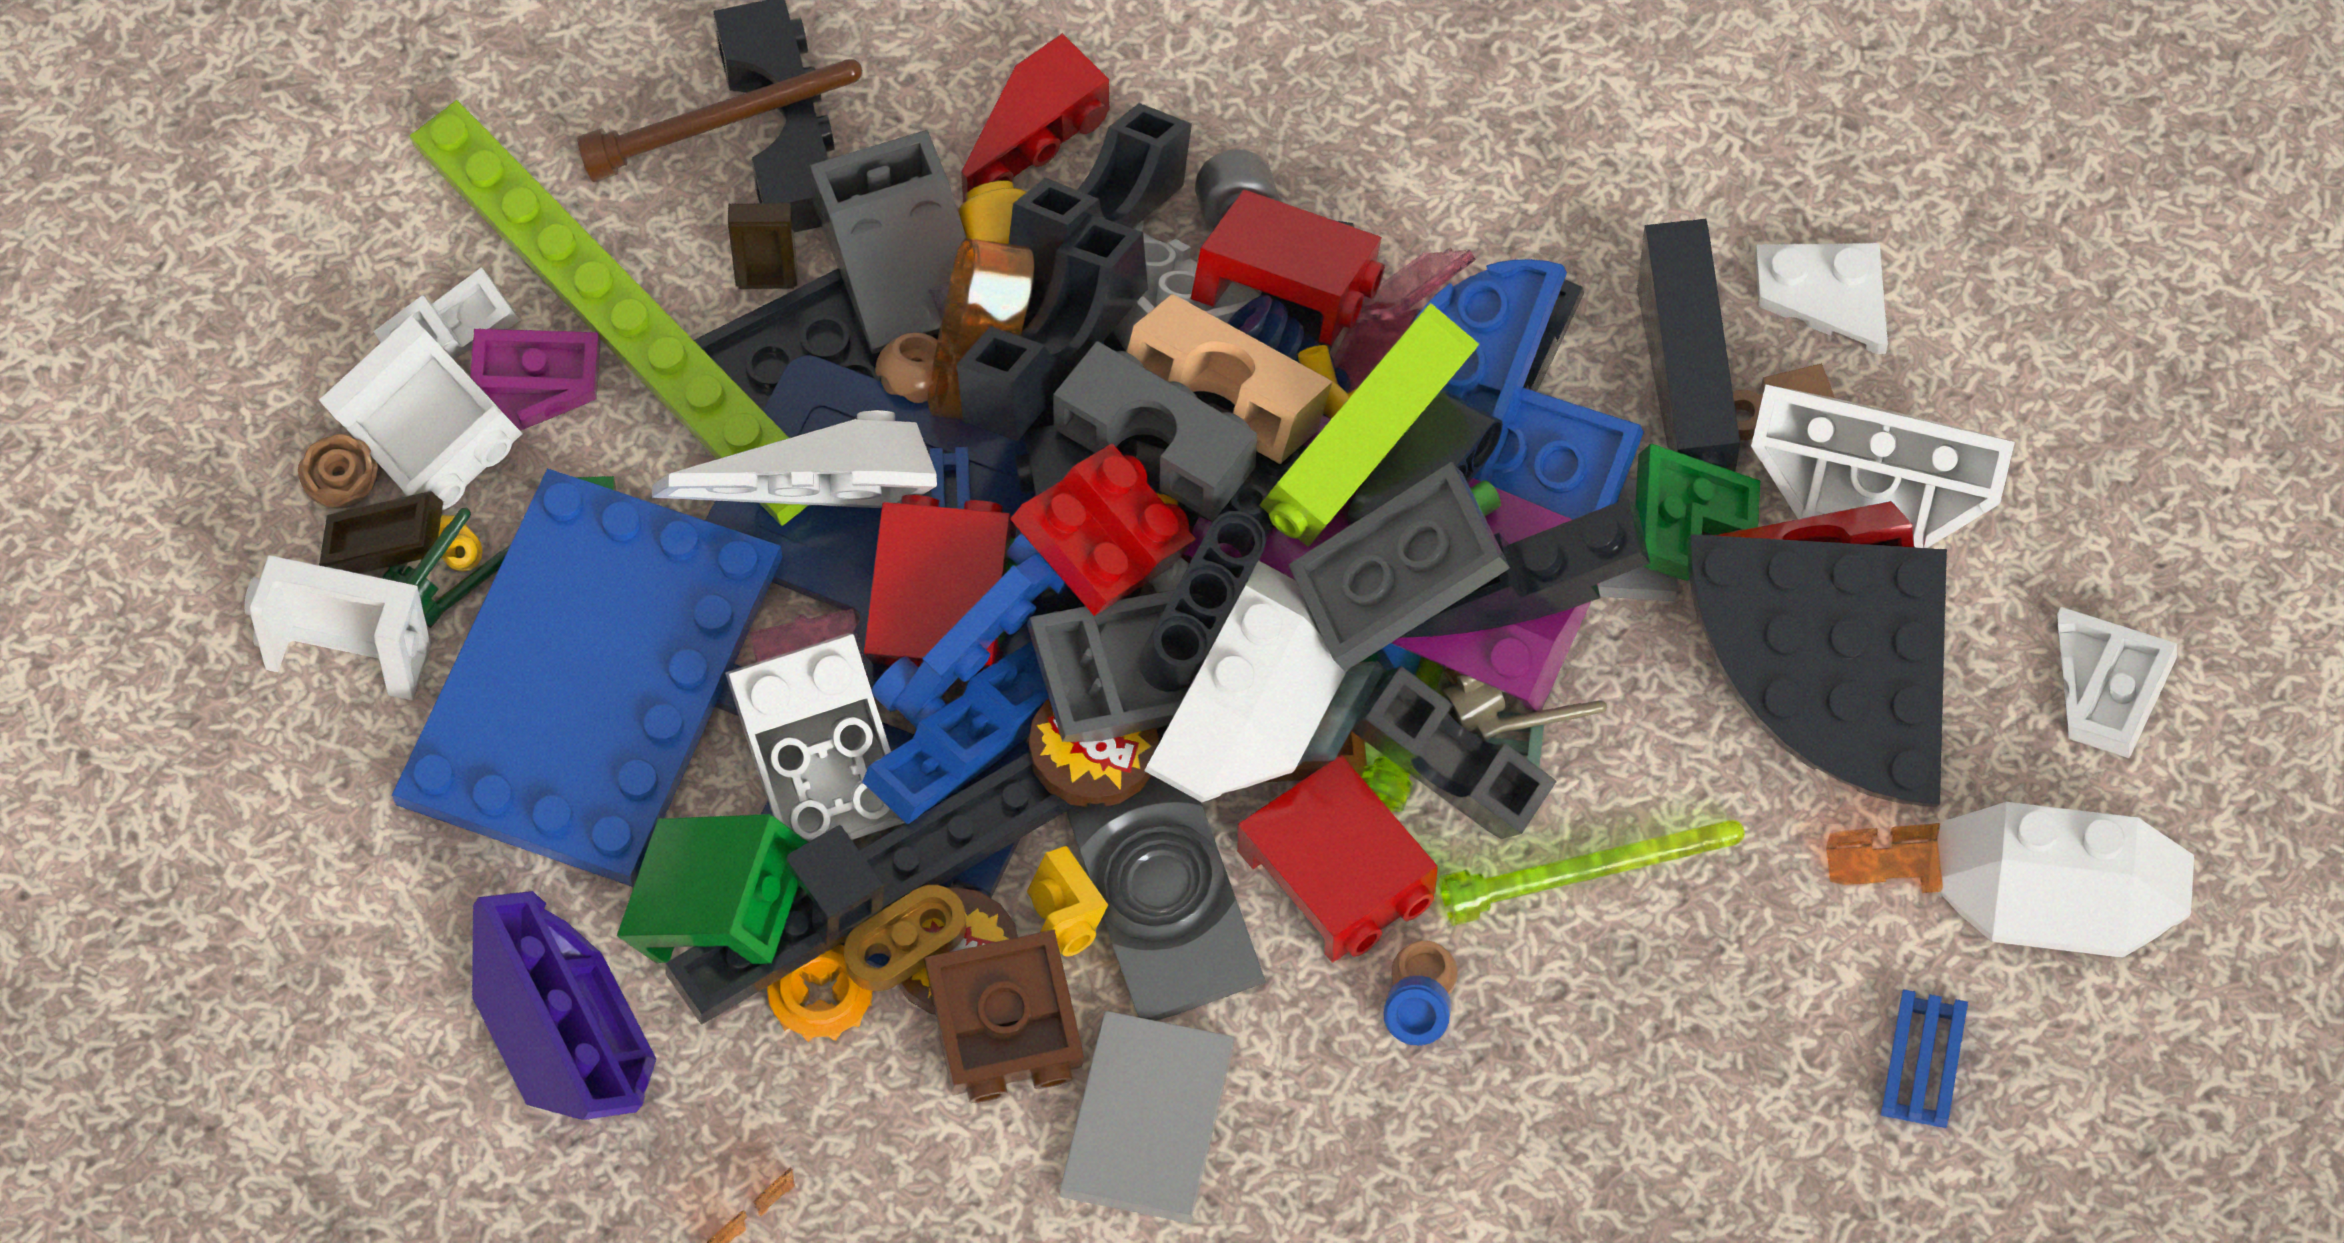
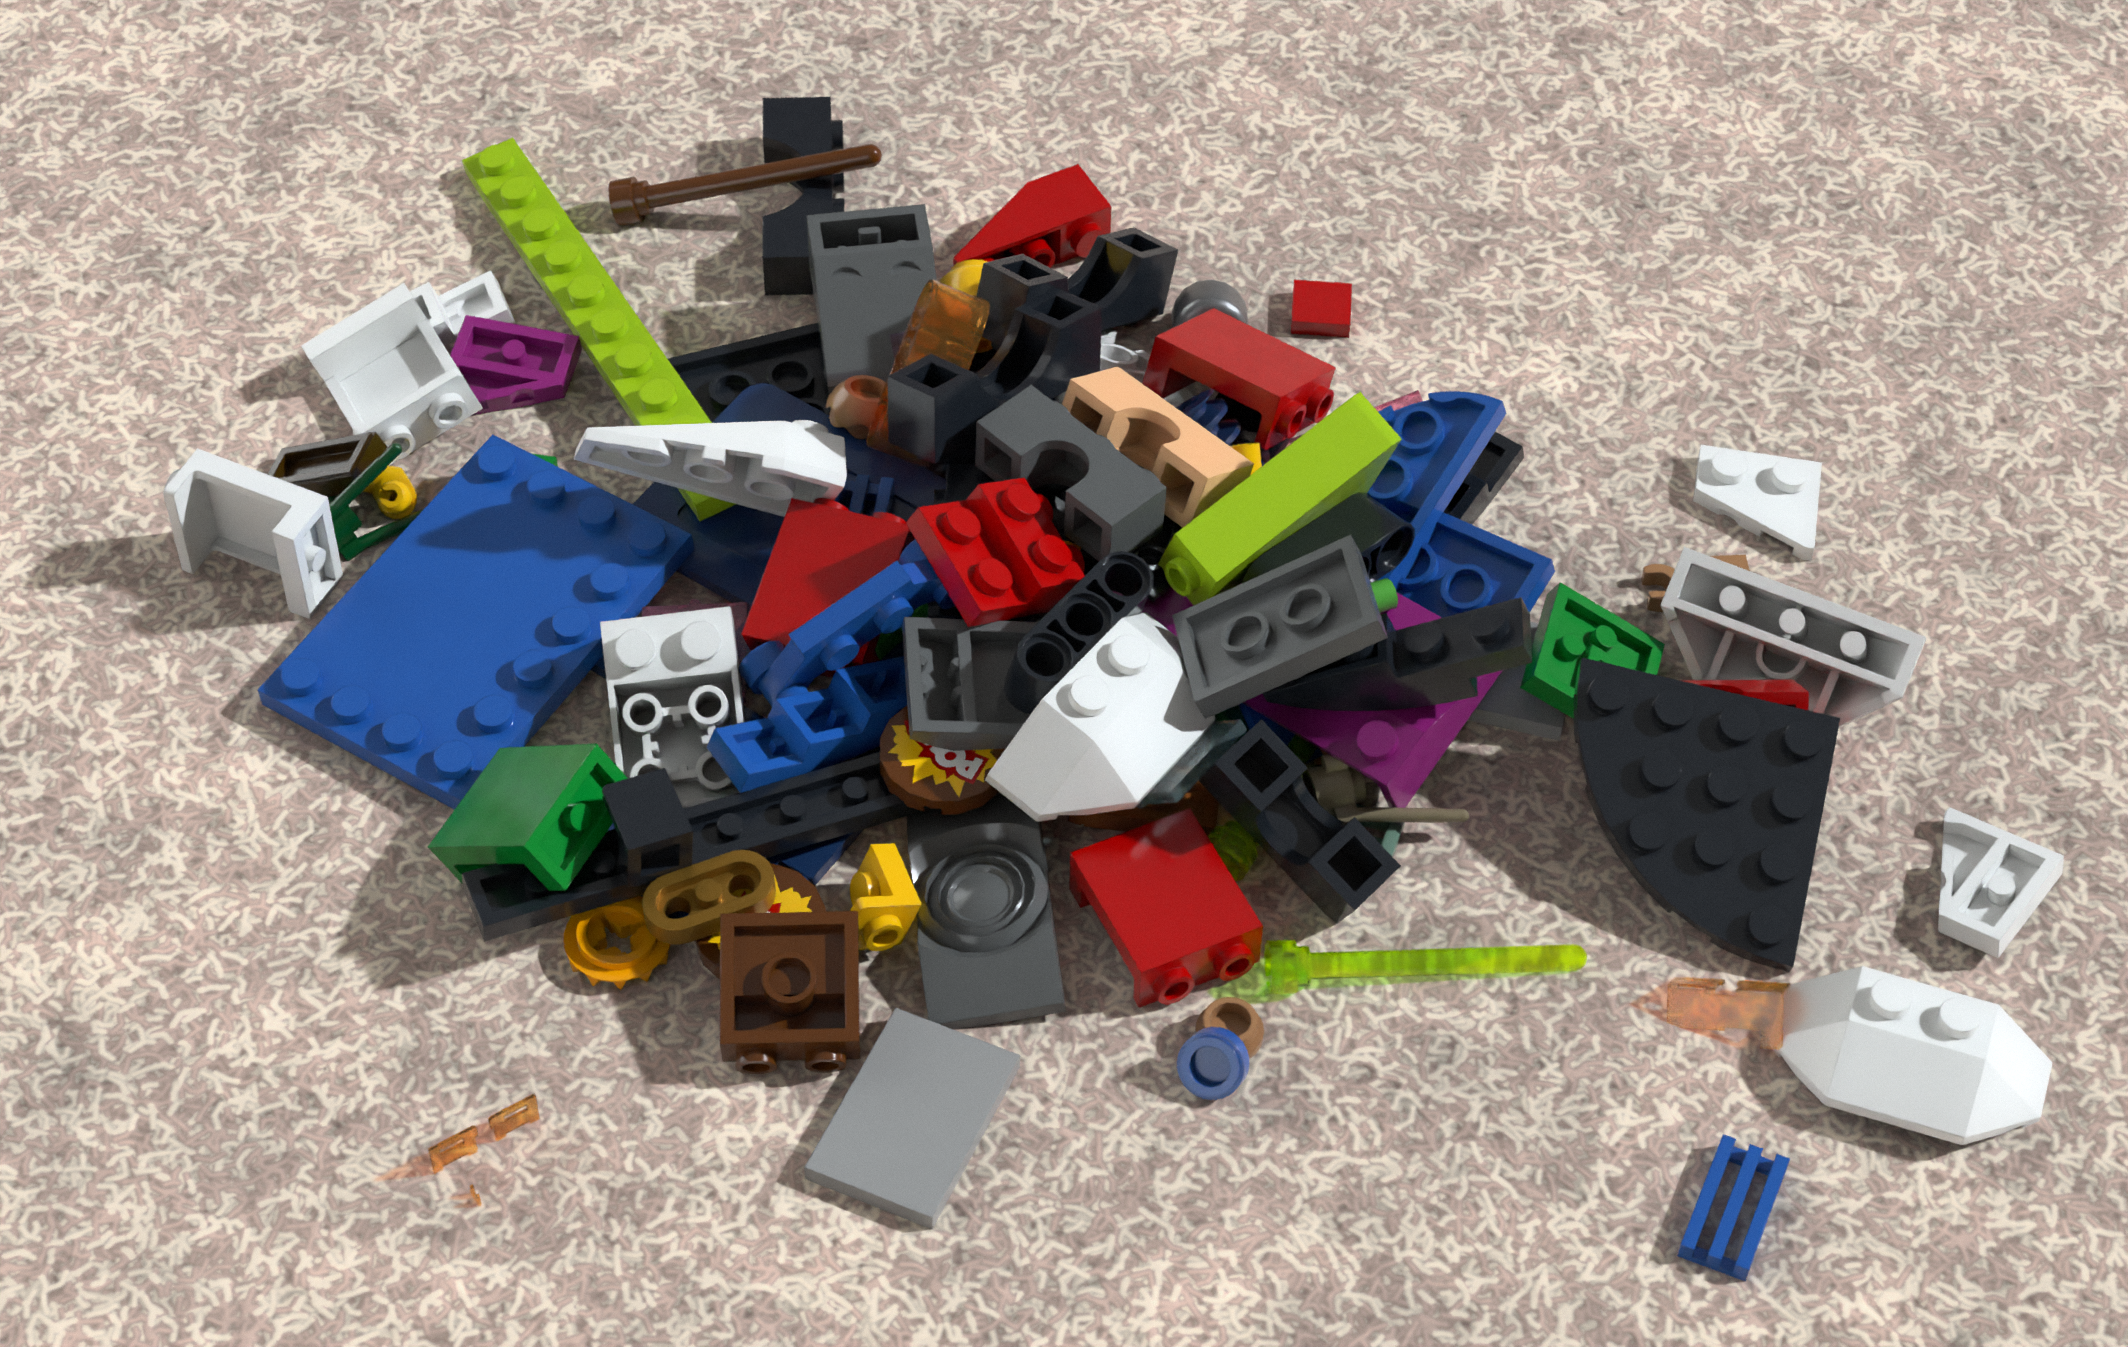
camera: 10 degrees right, 10 degrees down
(333, 455) = (304, 413): medium nougat plate -> none
(556, 1011) = (349, 904): dark purple wedge -> none
(762, 245) = (750, 285): dark brown tile -> none
(1344, 151) = (1321, 308): none -> red tile
(1688, 341) = (1616, 502): black slope -> none

